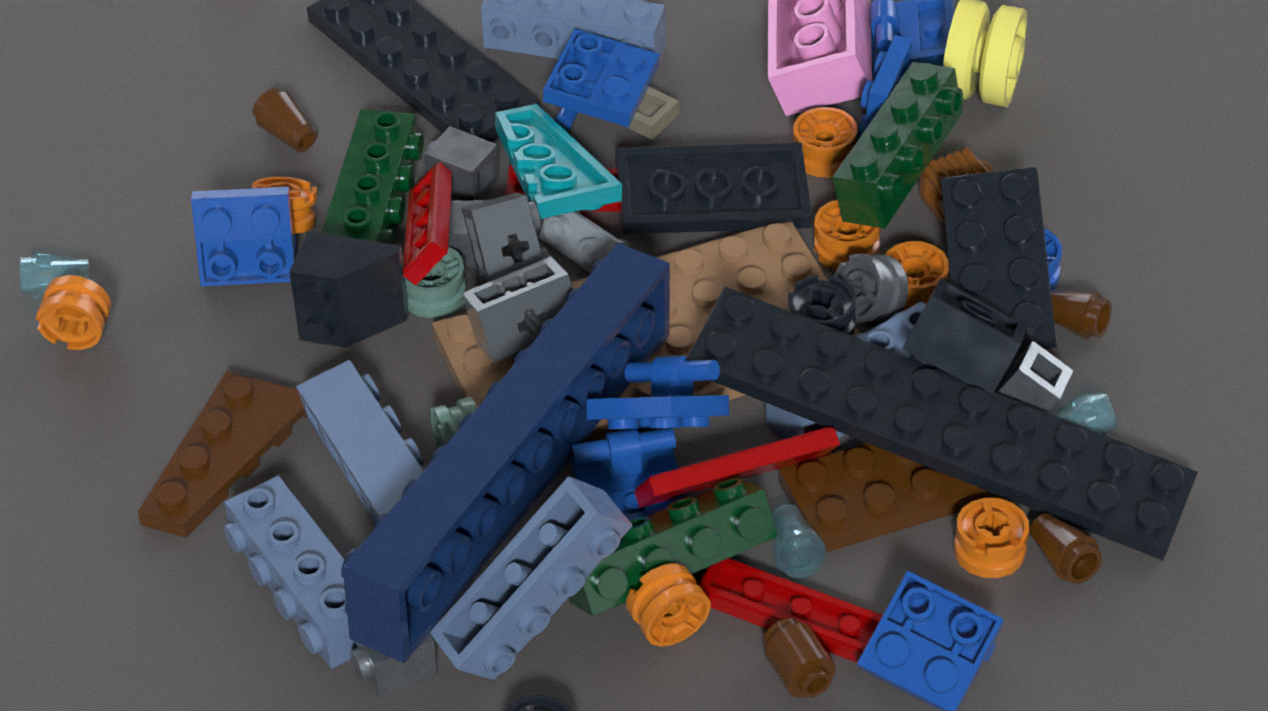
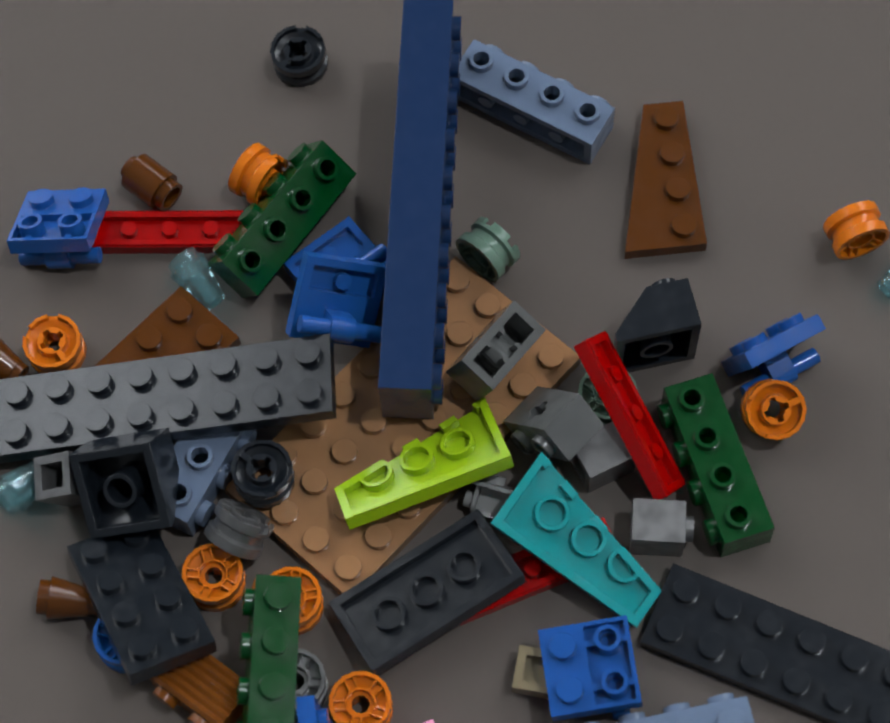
camera: 155 degrees right, 20 degrees up
(282, 118) = (844, 515): reddish brown cone -> none
(361, 436) = (544, 205): sand blue brick -> none
(531, 579) = (340, 107): sand blue brick -> none
(697, 253) = (447, 460): none -> lime wing
(736, 465) = (261, 291): red tile -> none

